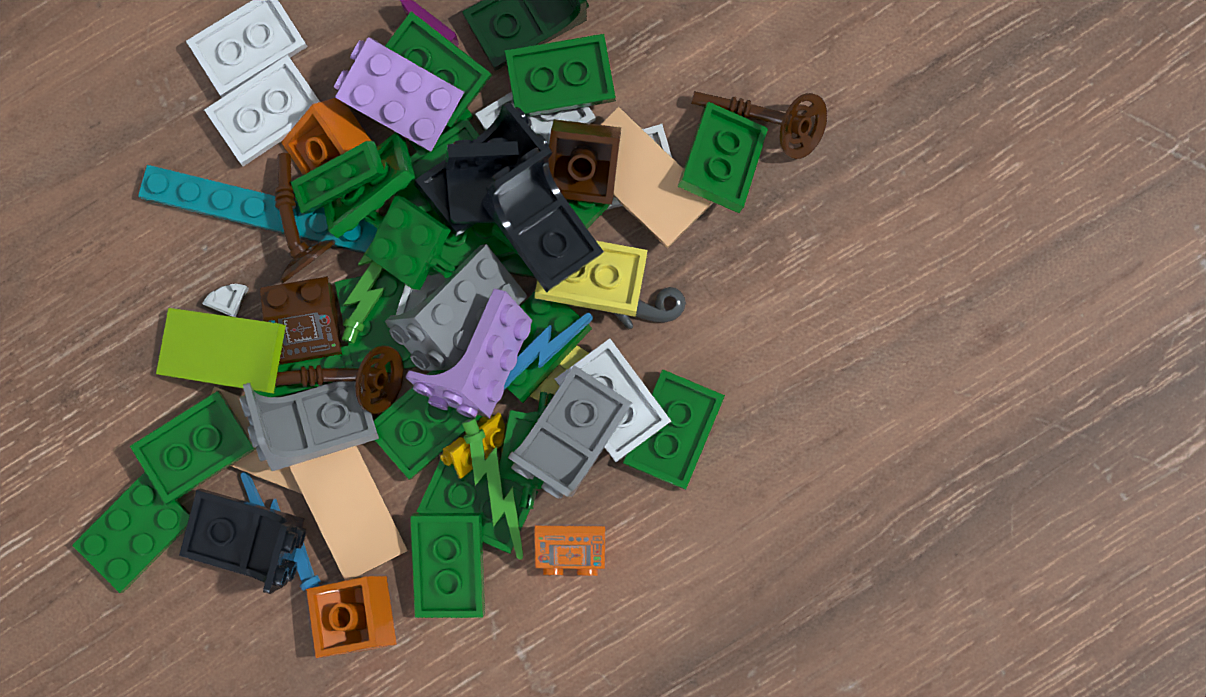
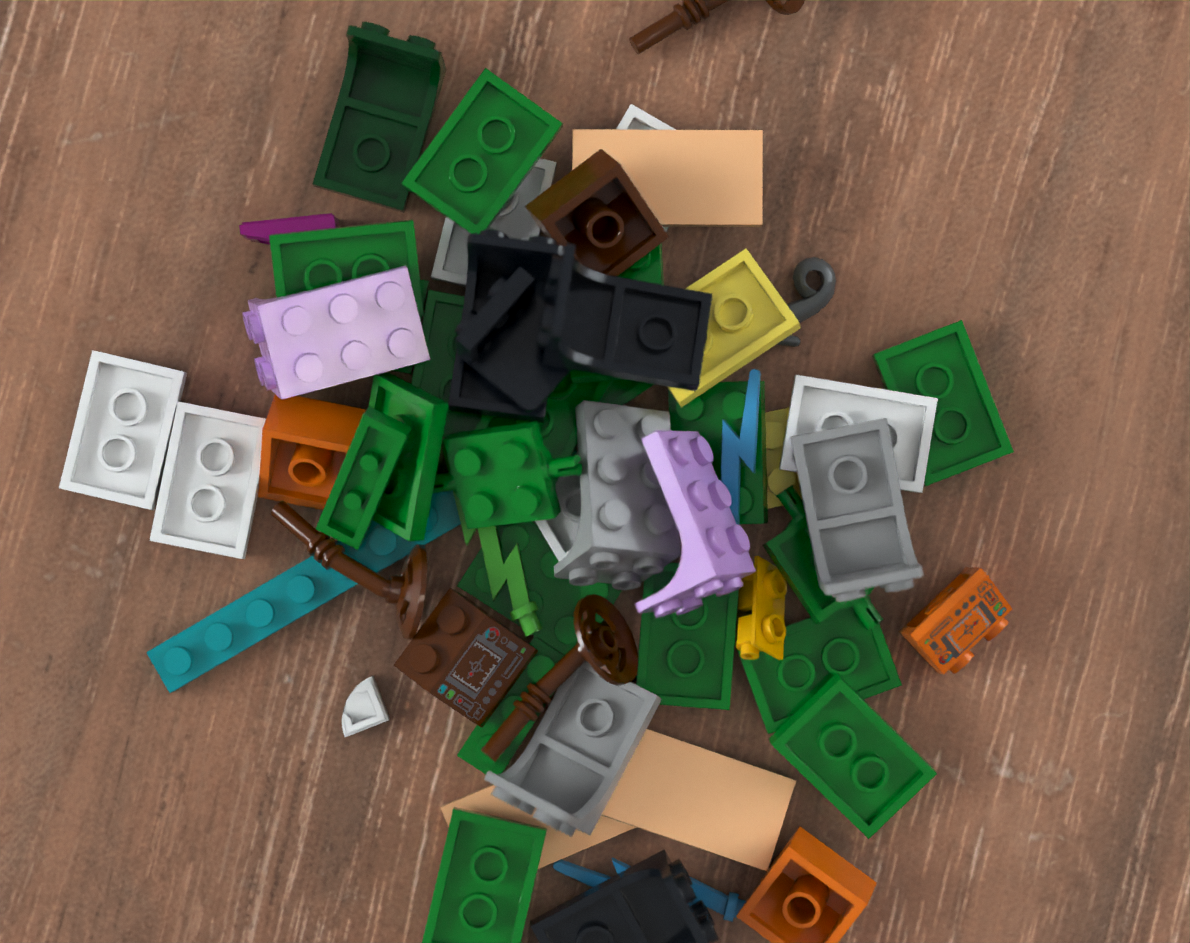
camera: 45 degrees left, 5 degrees up
(221, 349) = (416, 765): lime tile -> none
(491, 467) = (802, 617): bright green piece -> none
(723, 157) = (729, 79): green plate -> none

